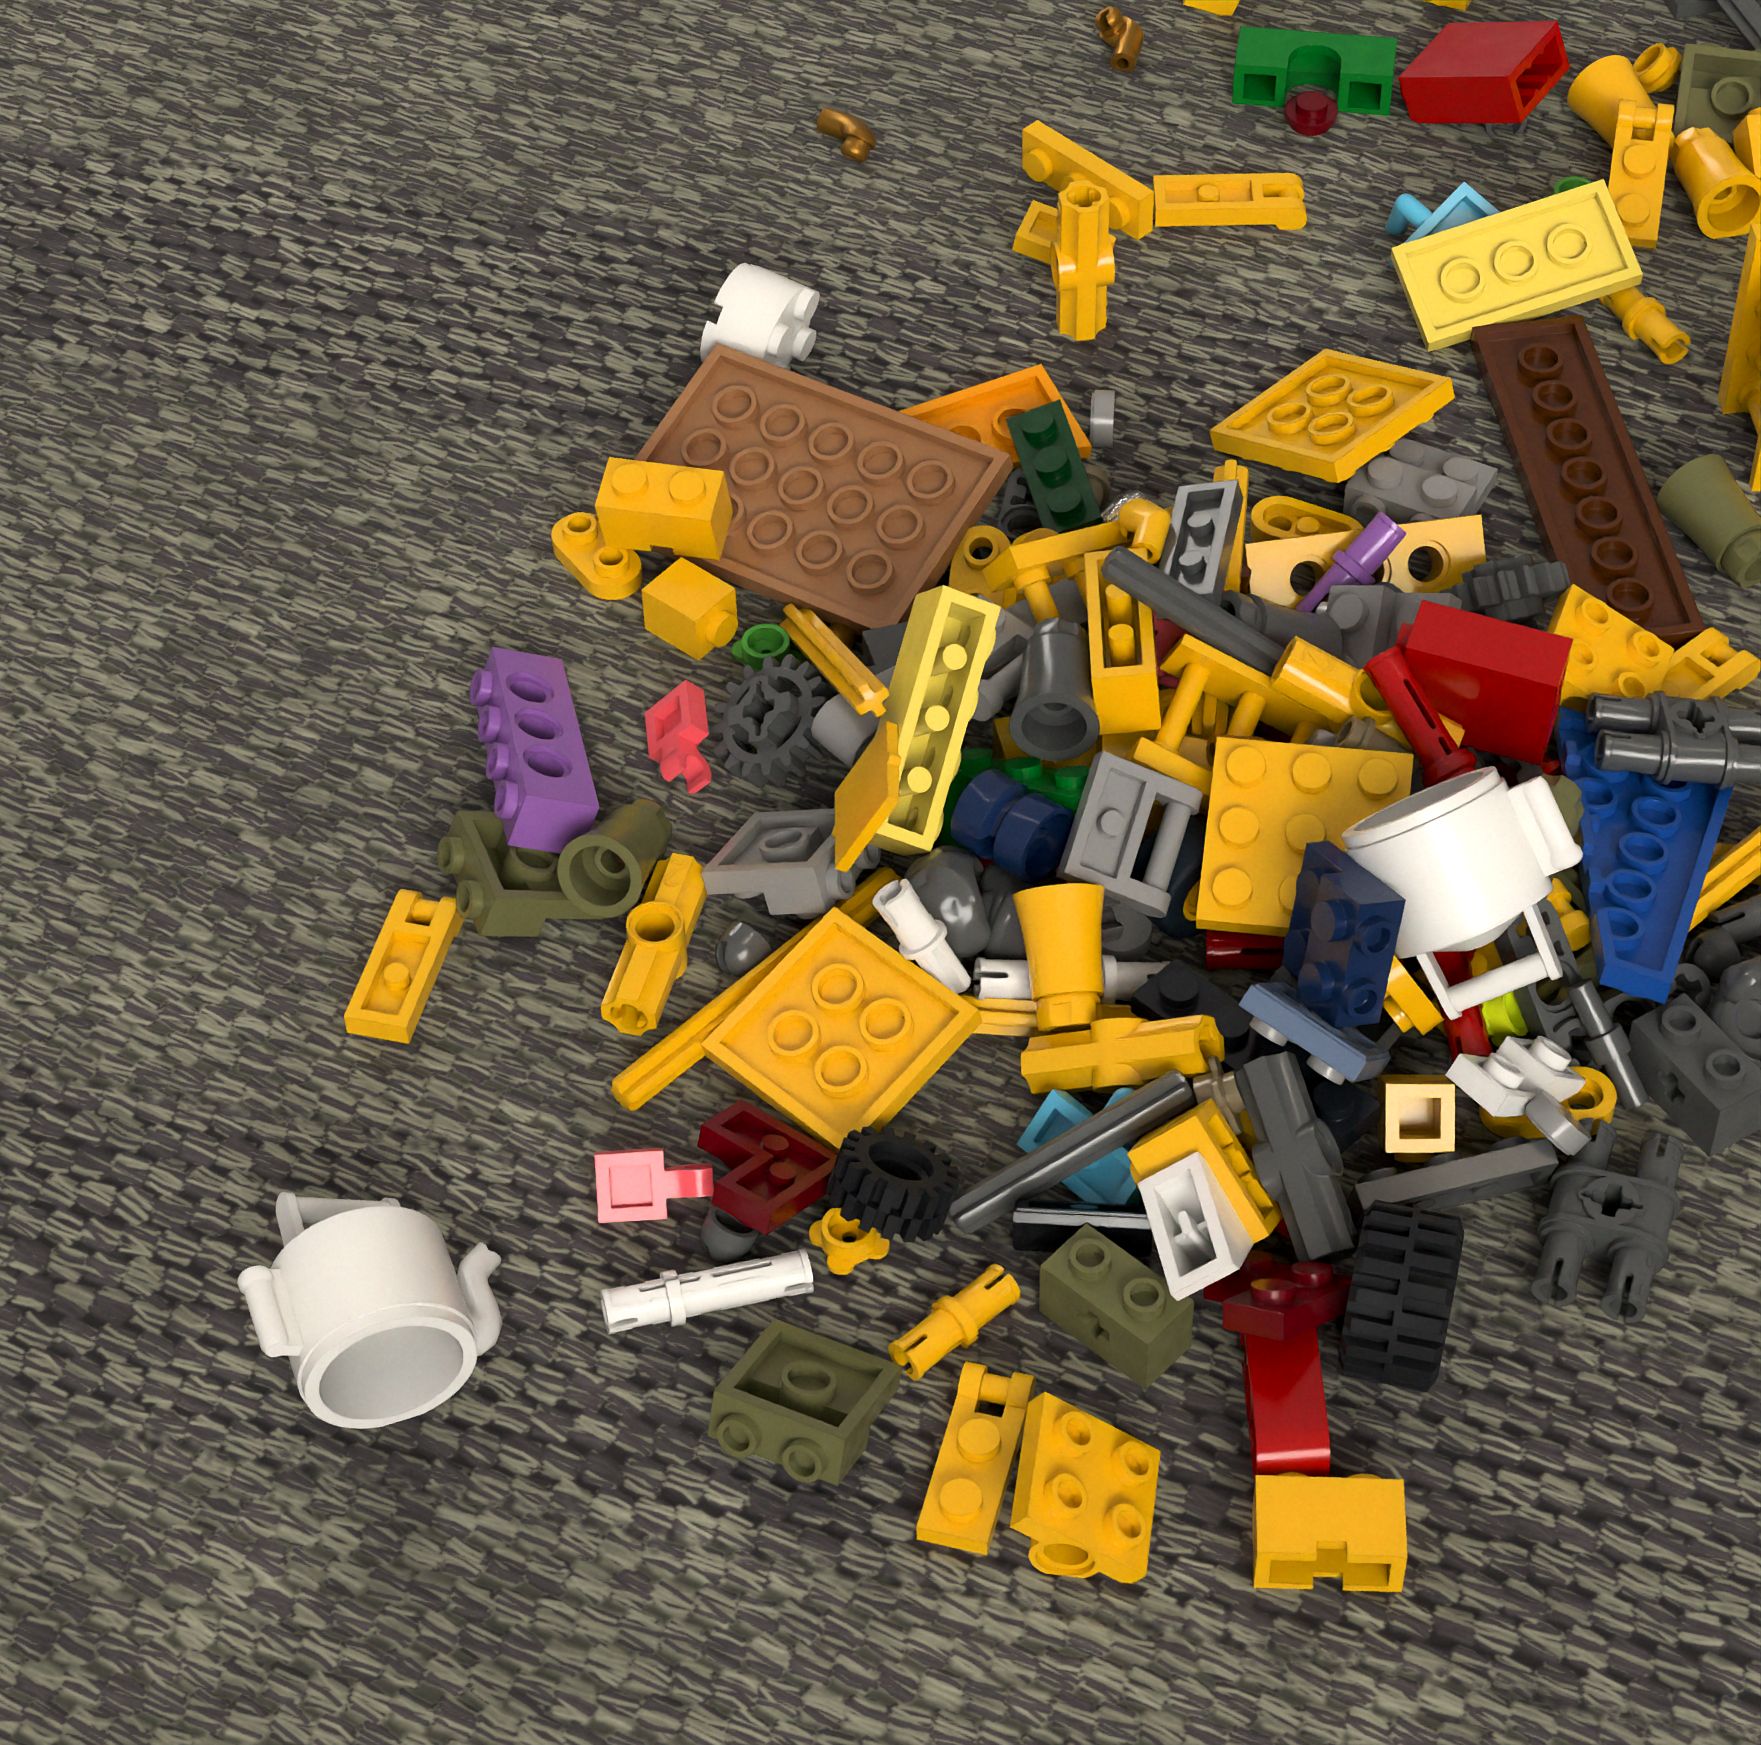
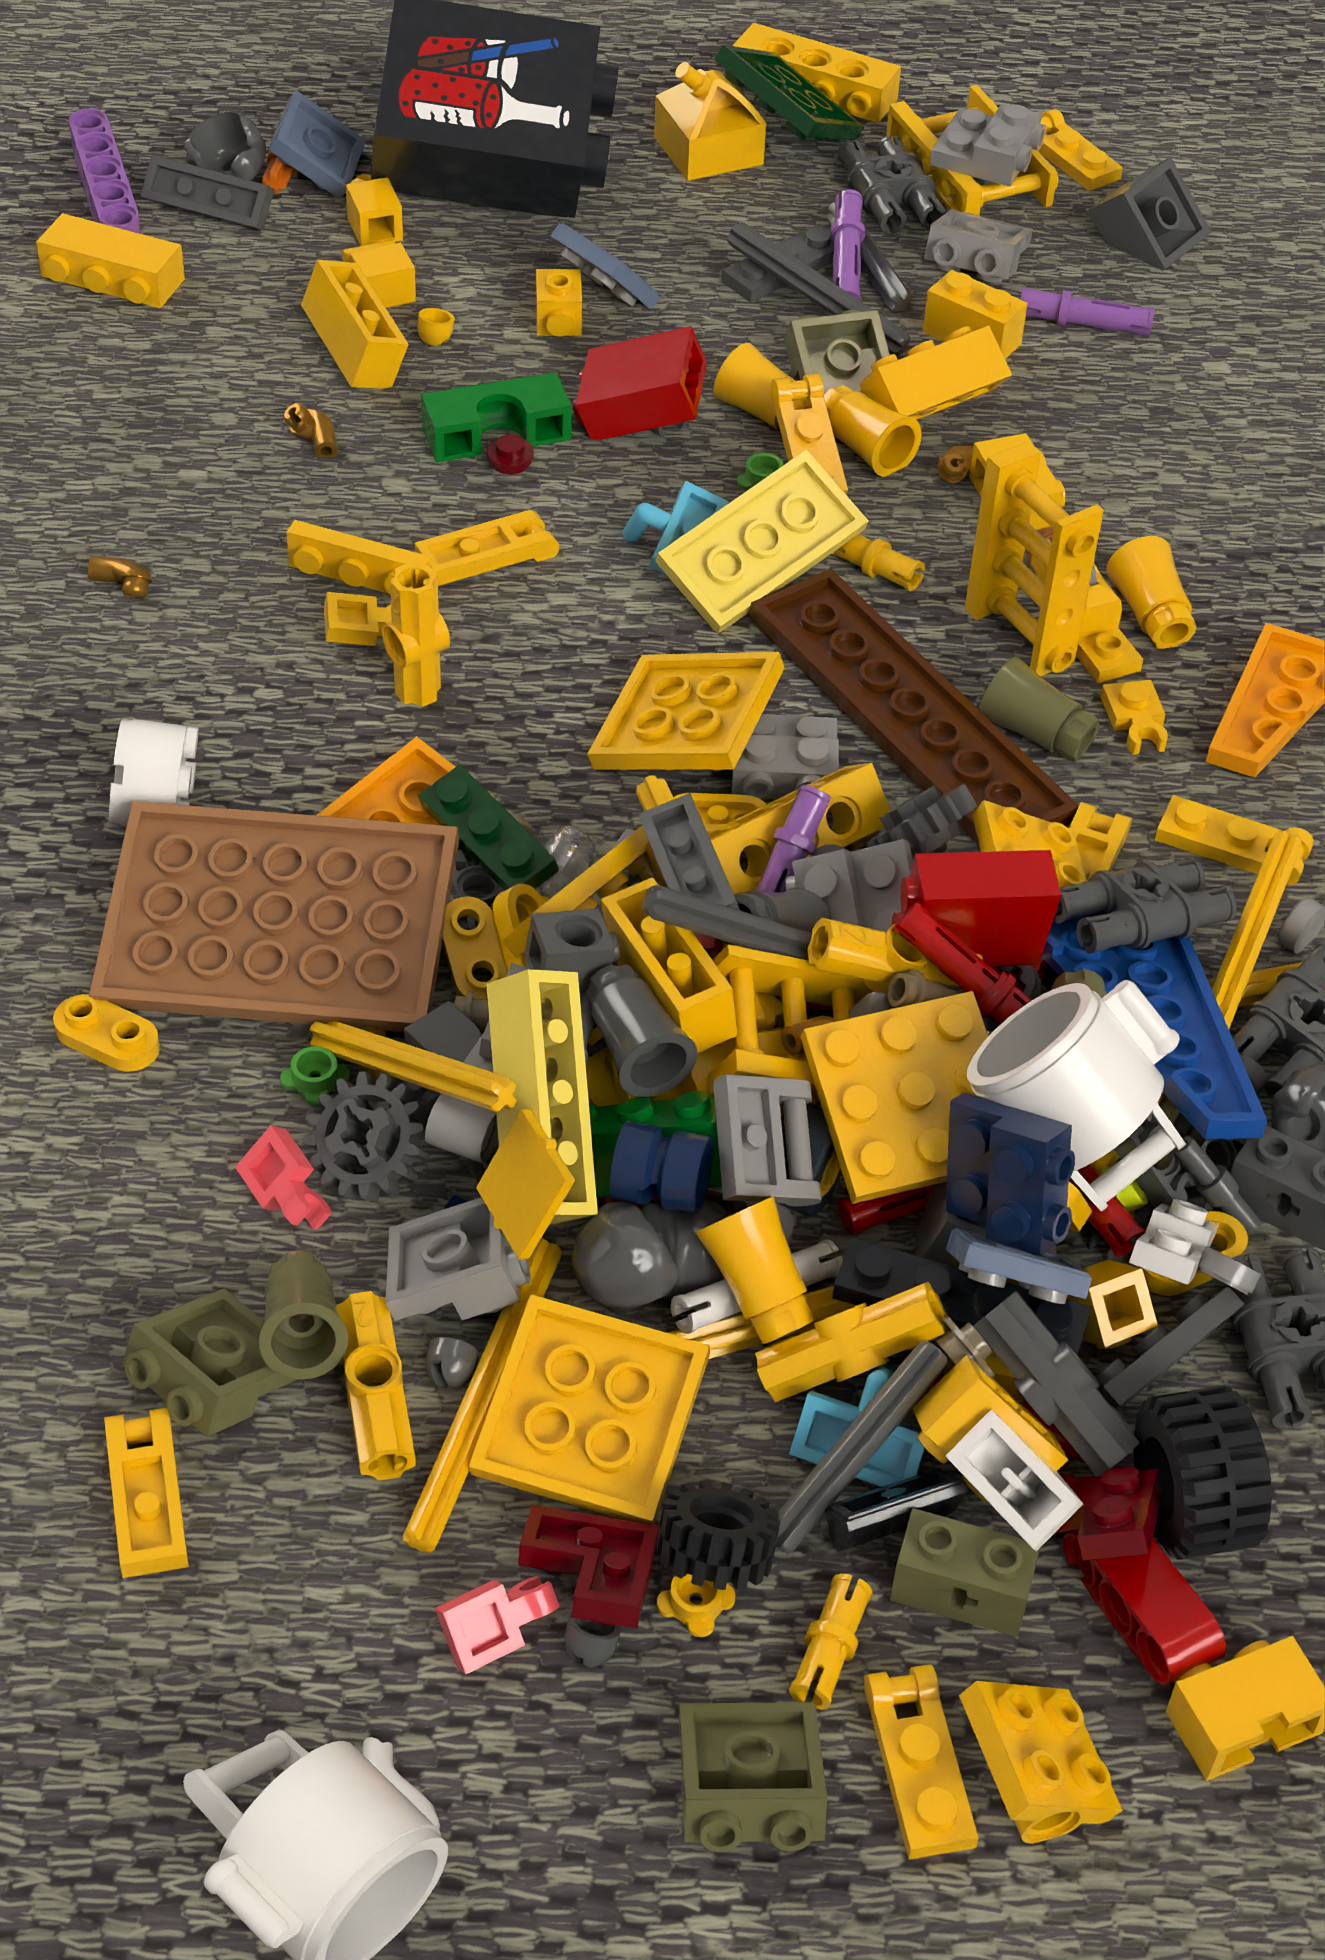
camera: 30 degrees left, 0 degrees up
(533, 750) = (170, 1241): medium lavender brick -> none
(664, 507) = (167, 970): yellow brick -> none
(690, 609) = (228, 1056): yellow brick -> none
(695, 1293) = (581, 1715): white pin -> none
(920, 934) = (628, 1294): white axle -> none
(1031, 590) = (571, 943): none -> dark grey brick
(1102, 418) = (492, 769): light grey tile -> none
(1148, 523) = (633, 854): yellow arm -> none
(1658, 67) = (770, 342): yellow plate -> none

